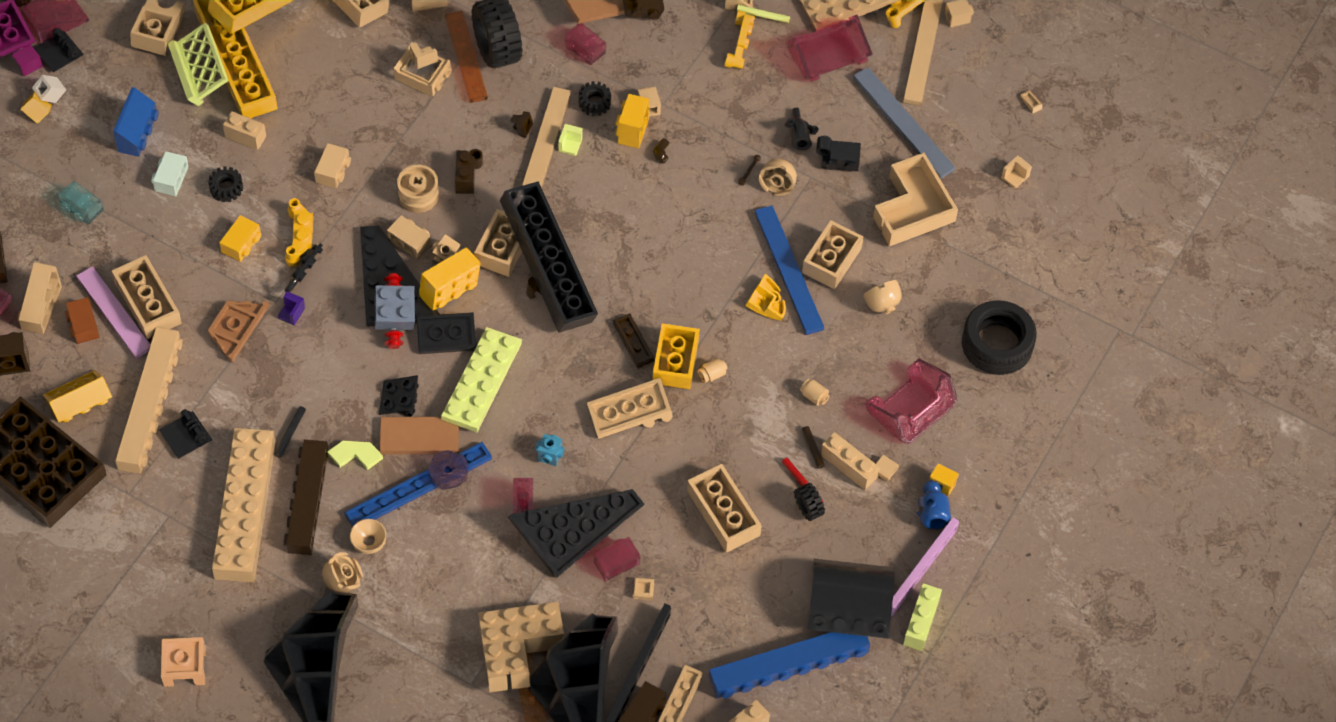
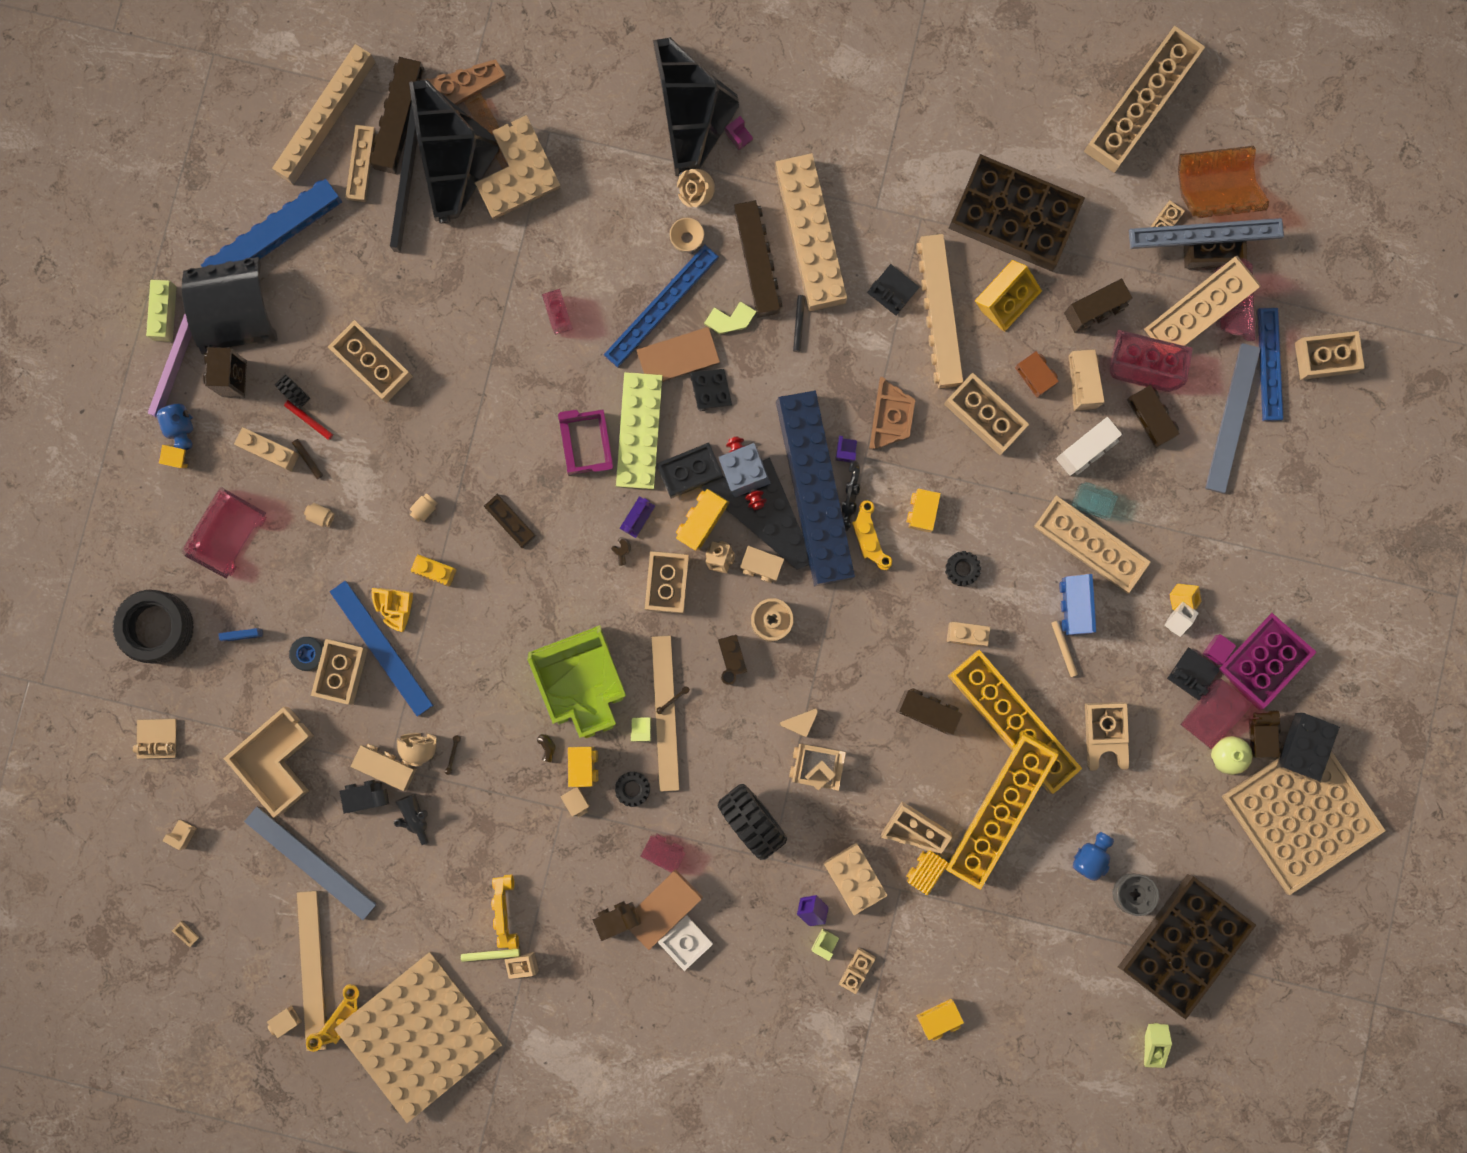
camera: 165 degrees right, 25 degrees up
(65, 241) = (1089, 447): none -> white brick
(99, 171) = (1092, 544): none -> tan plate
(114, 312) = (1014, 396): lavender tile -> none
(163, 101) = (1064, 648): none -> tan bar
(170, 173) = (1021, 562): light aqua brick -> none
(183, 660) = (805, 66): light nougat panel -> none
(187, 70) = (1053, 687): yellowish green fence -> none
(277, 621) = (738, 133): none -> magenta panel
(307, 78) = (929, 711): none -> dark brown brick
(332, 166) = (866, 621): tan brick -> none
(334, 282) = (815, 488): none -> dark blue brick
(424, 106) = (800, 724): none -> tan slope
(444, 479) = (636, 333): clear purple plate -> none
(466, 56) = (781, 801): clear orange tile -> none
(511, 309) = (637, 517): none -> dark purple hinge
(518, 159) = (685, 690): none -> dark brown hinge
(522, 123) = (694, 733): dark brown tile -> none
(532, 356) = (574, 416): none -> magenta piece
(548, 257) = (613, 569): black brick -> none
(549, 449) = (555, 378): dark azure brick -> none
(572, 529) = (505, 294): black wing -> none
(613, 190) = (578, 681): none -> lime panel
(616, 558) = (455, 284): clear pink brick -> none
(630, 408) = (488, 440): tan hinge -> none
(643, 588) = (424, 266): tan tile -> none
(676, 355) = (460, 508): yellow brick -> none
(719, 314) = (433, 570): none -> yellow brick
(816, 173) = (383, 767): none -> tan brick
(830, 48) = (409, 930): clear pink windscreen -> none
(858, 279) = (301, 653): none -> black wheel
(870, 528) = (225, 372): none -> dark brown brick
(884, 297) = (276, 637): tan cylinder -> none
(887, 468) = (234, 457): tan tile -> none
(918, 313) = (241, 634): none -> blue tile
(1020, 254) = (156, 739): none -> tan hinge

